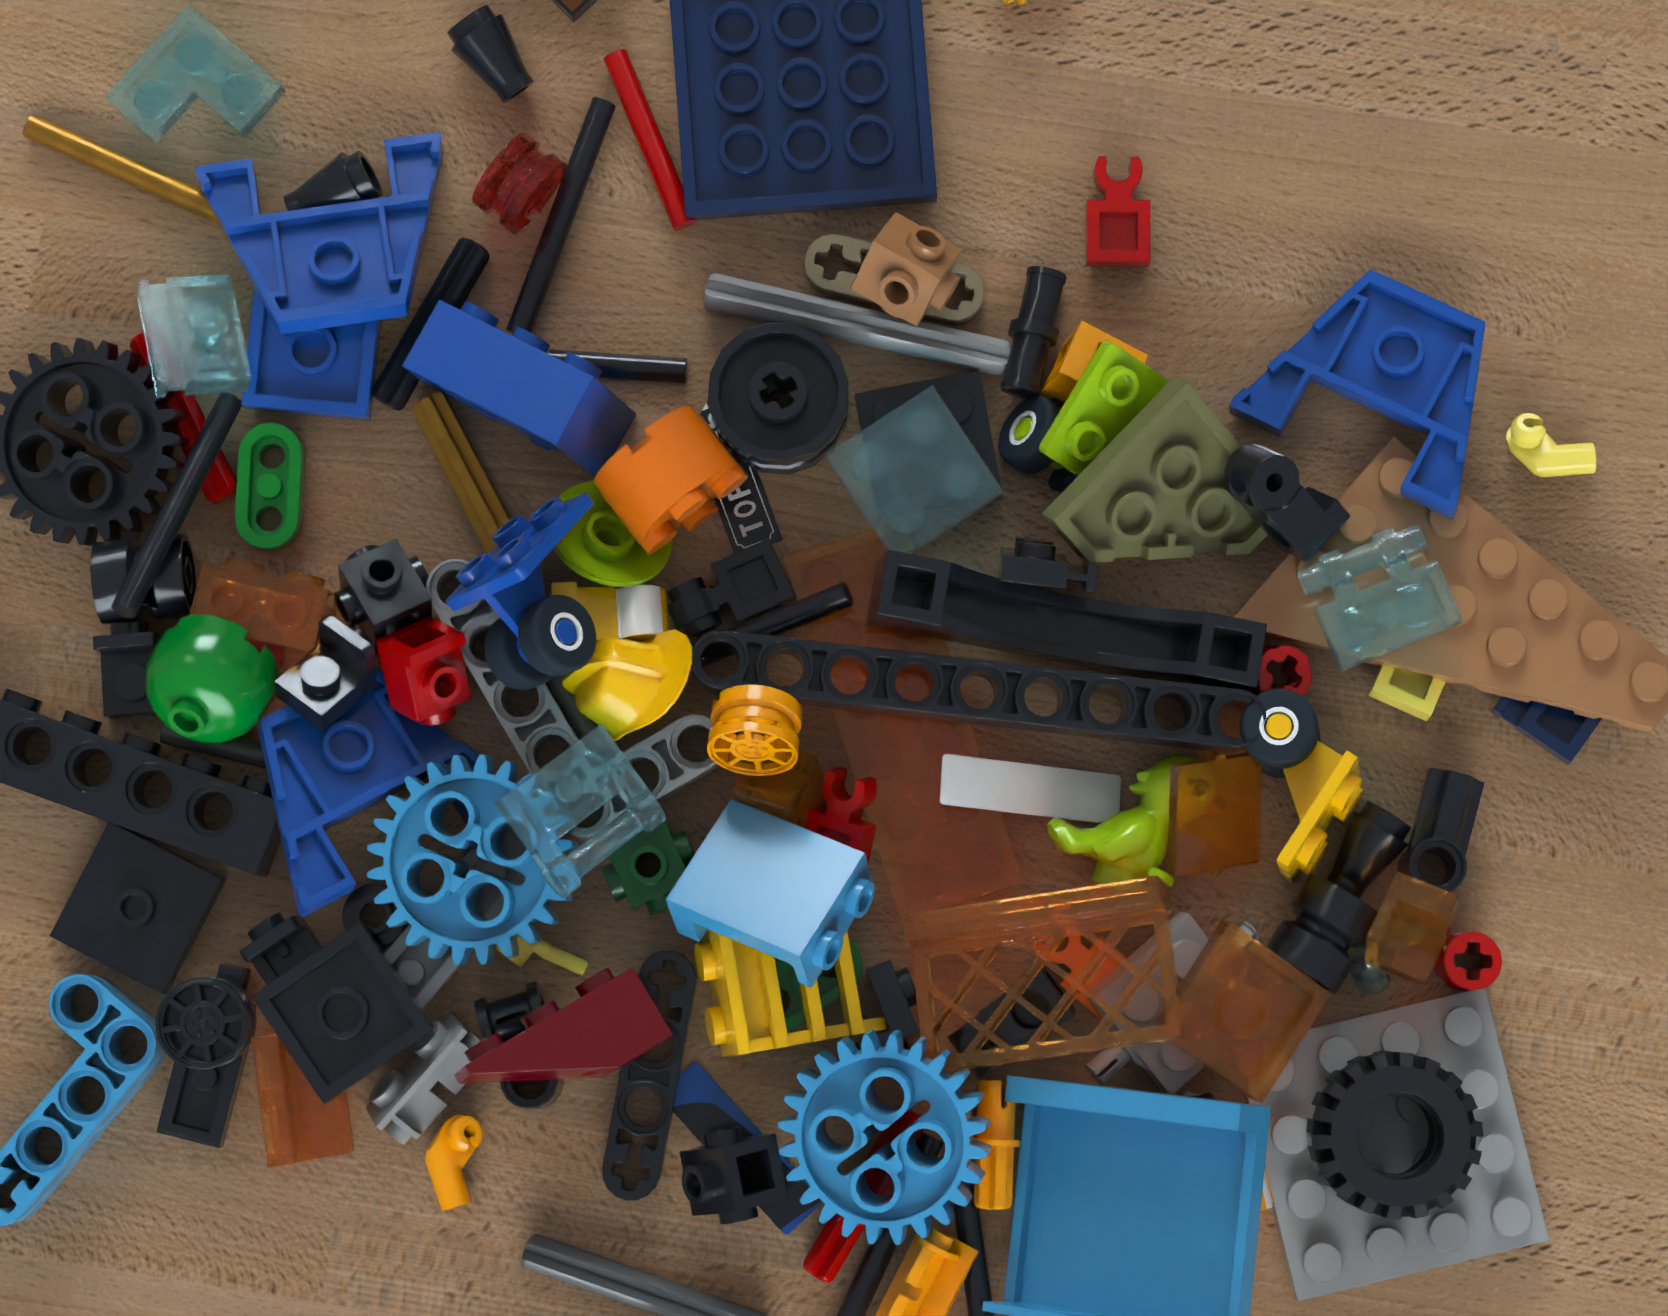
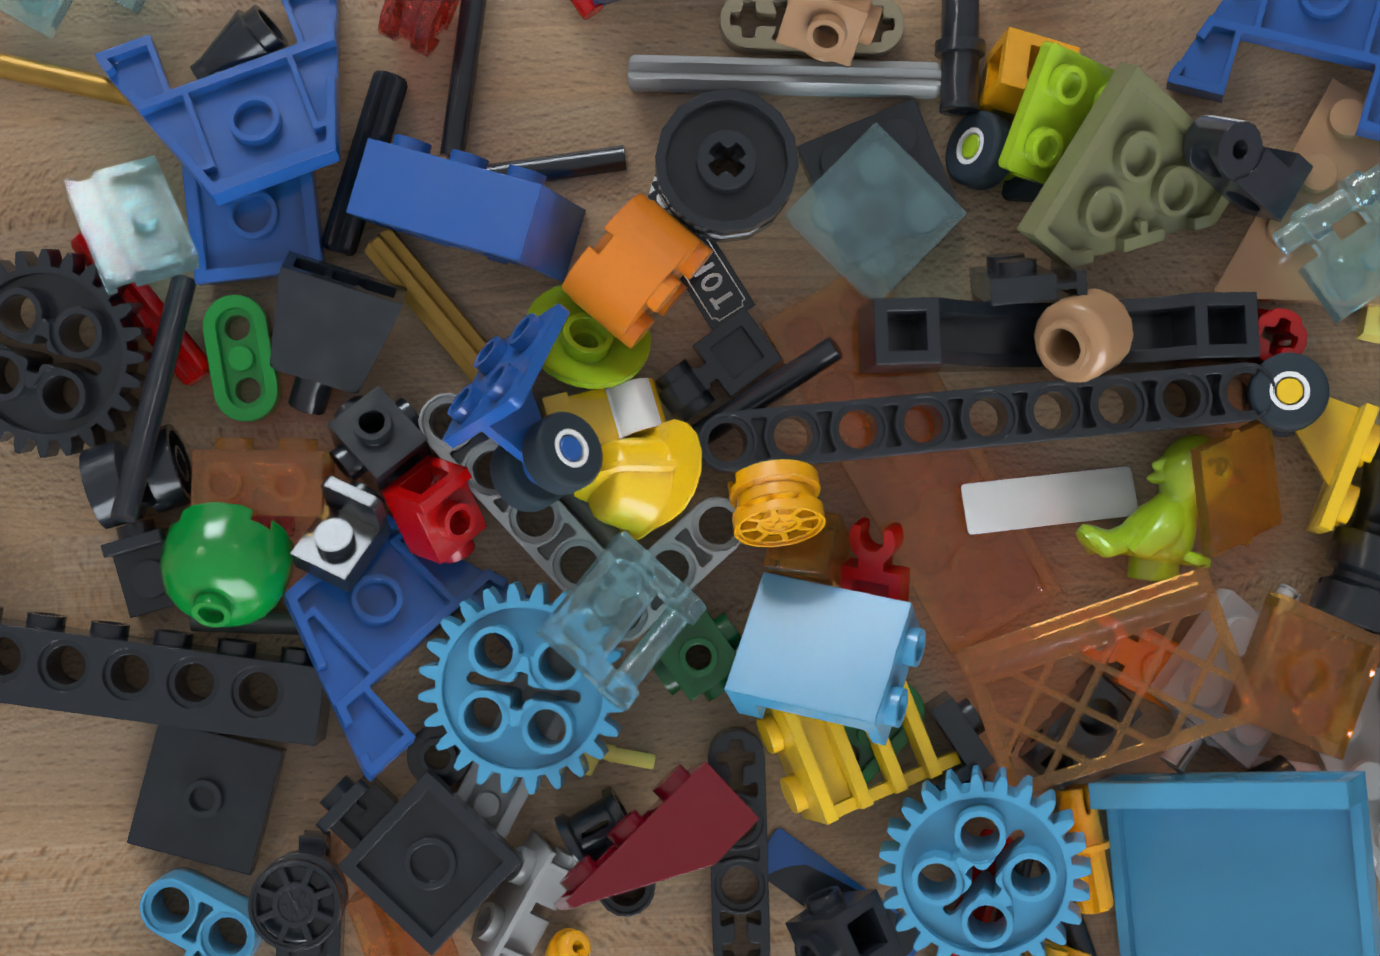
camera: 10 degrees left, 5 degrees up
(360, 474) = (329, 328): none -> black torso
(1086, 629) = (1083, 335): none -> medium nougat head

